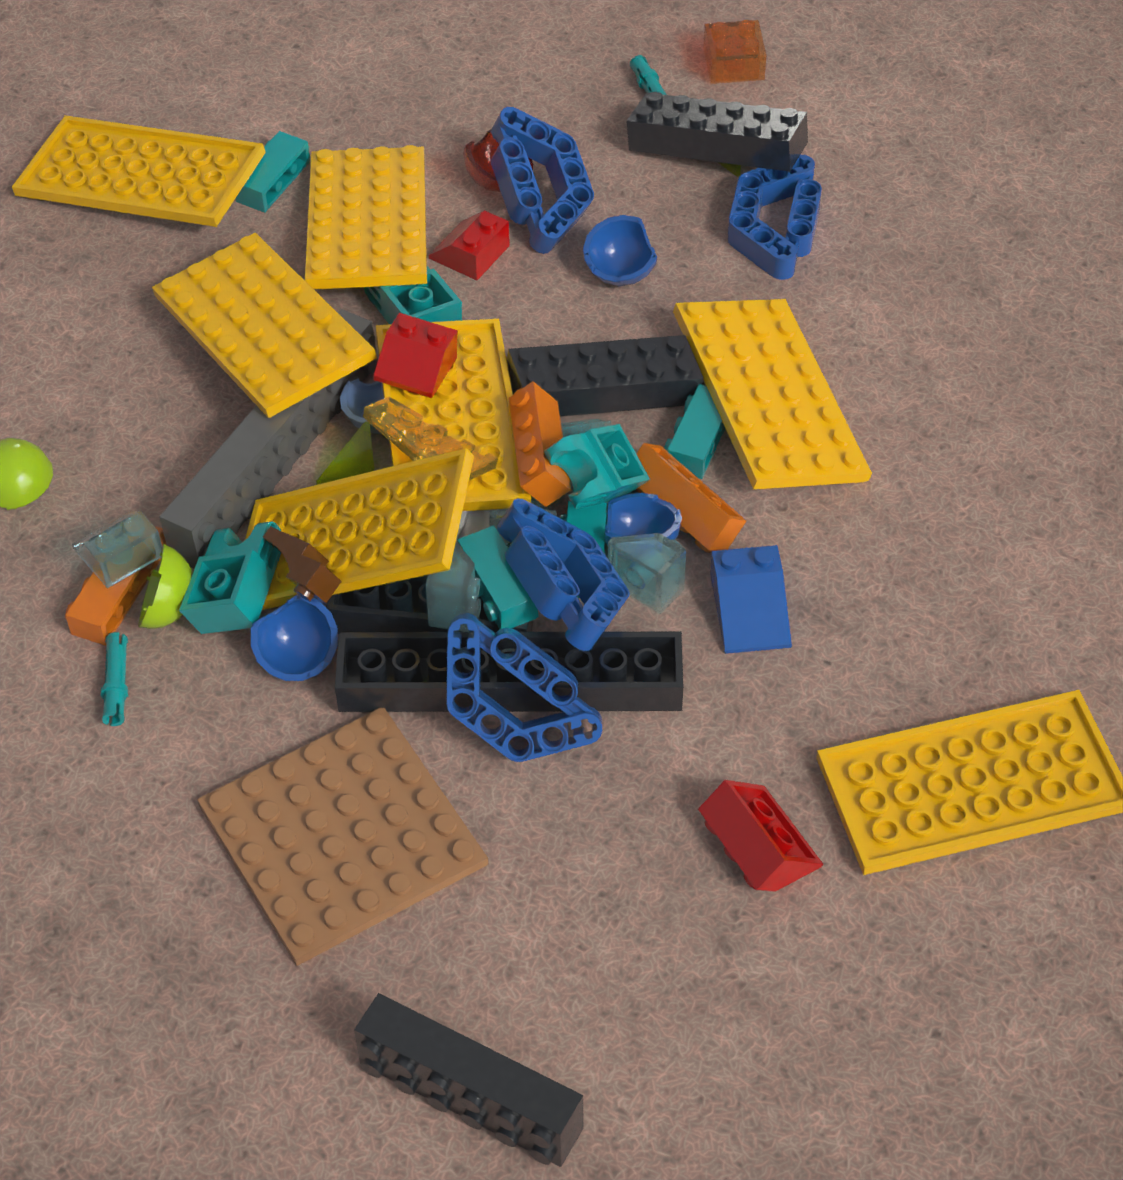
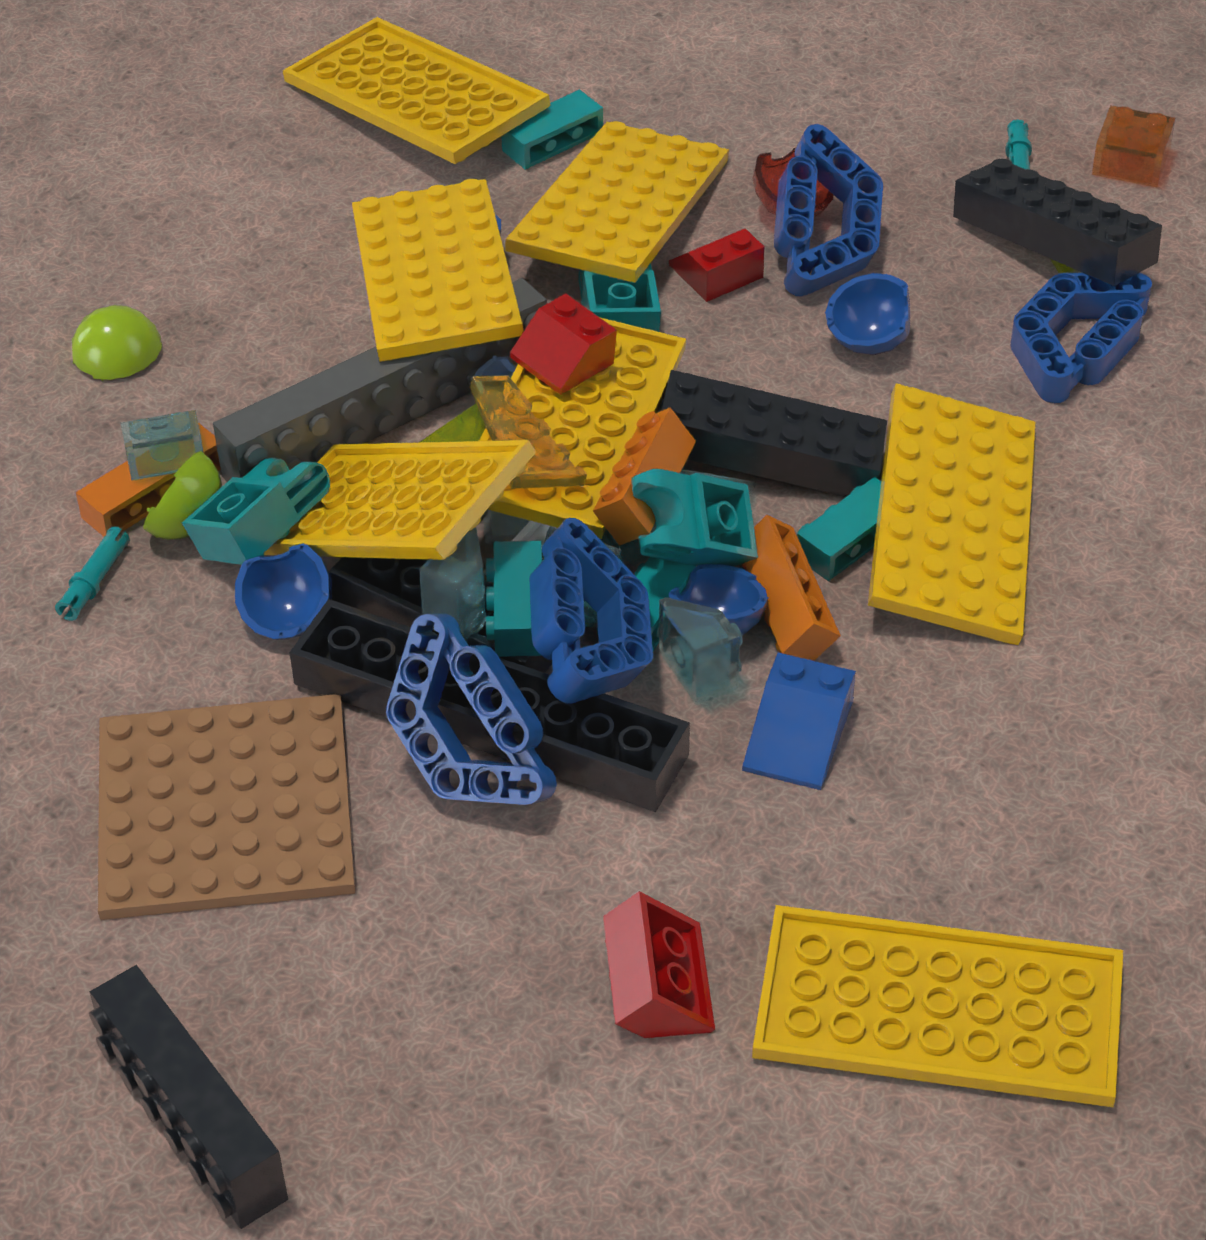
camera: 25 degrees right, 5 degrees down
(305, 566) = (318, 517): reddish brown slope -> none

